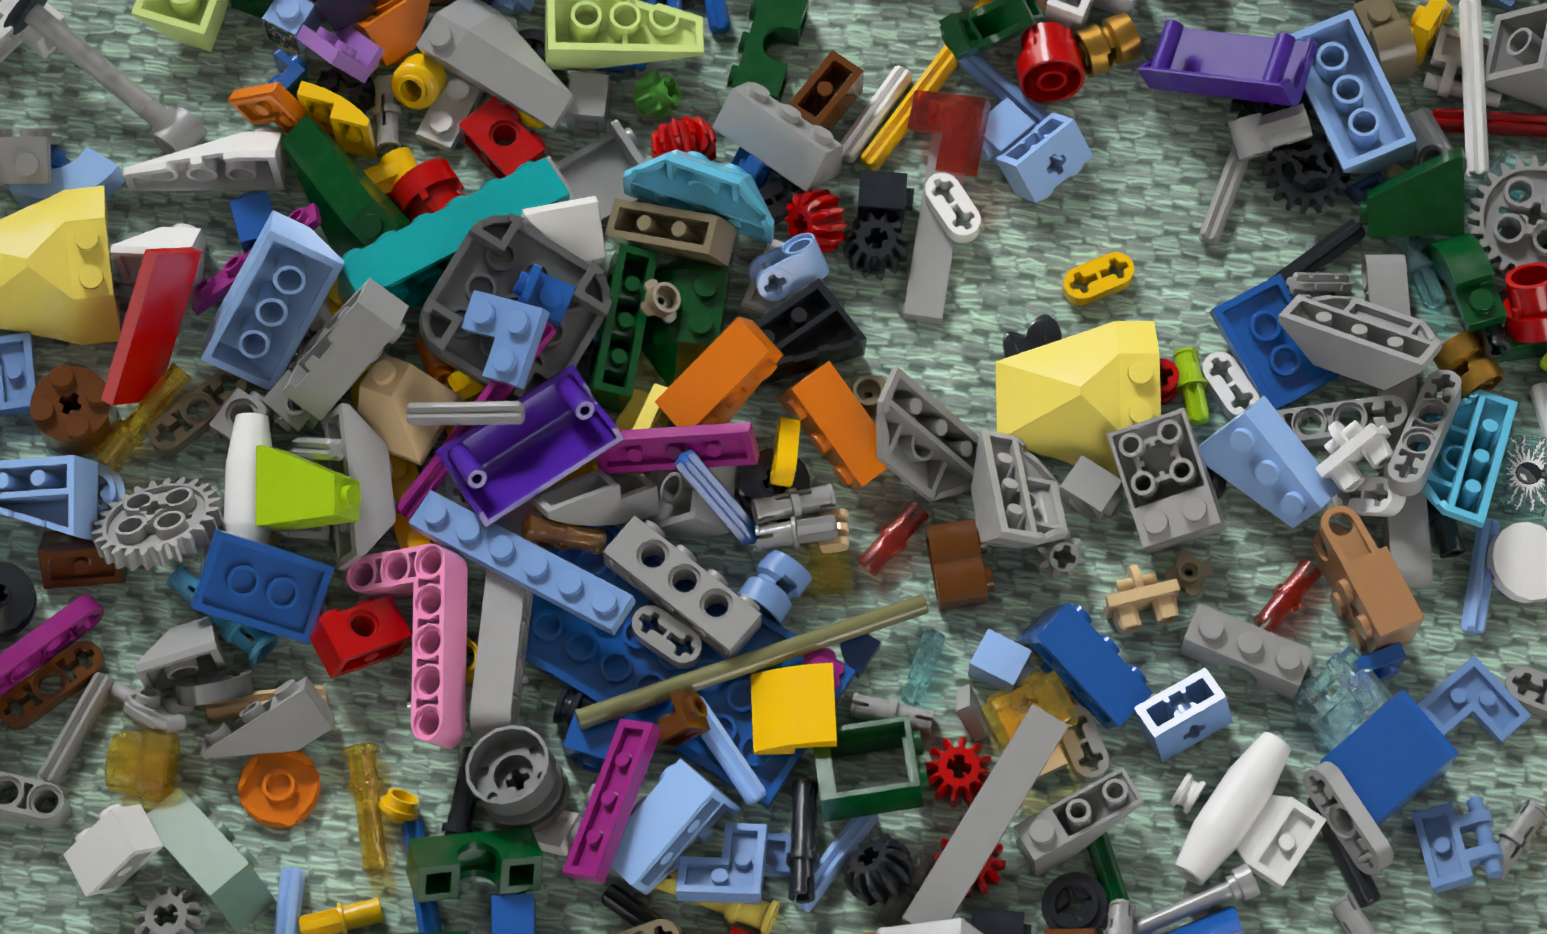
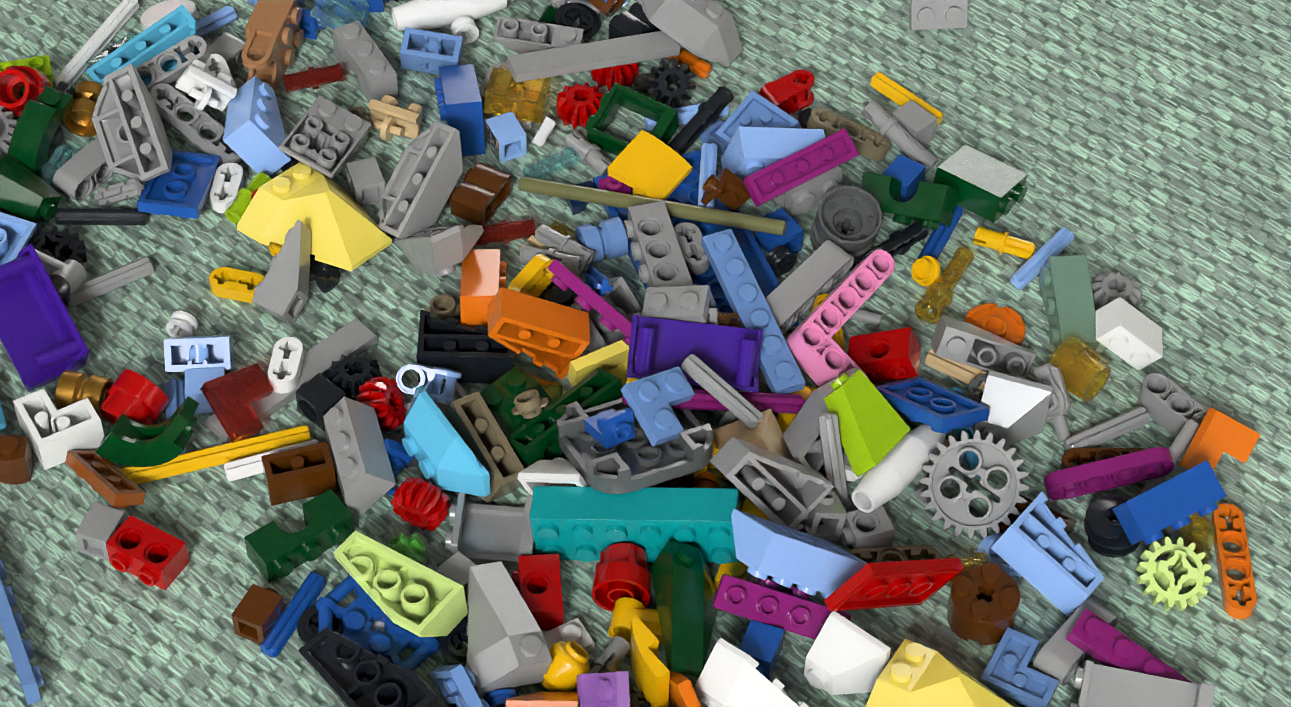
camera: 145 degrees left, 20 degrees down
(594, 497) = (679, 303): none -> light grey bracket
(1037, 294) = (287, 281): none -> light grey slope
(1099, 187) = (181, 324): none -> white bush

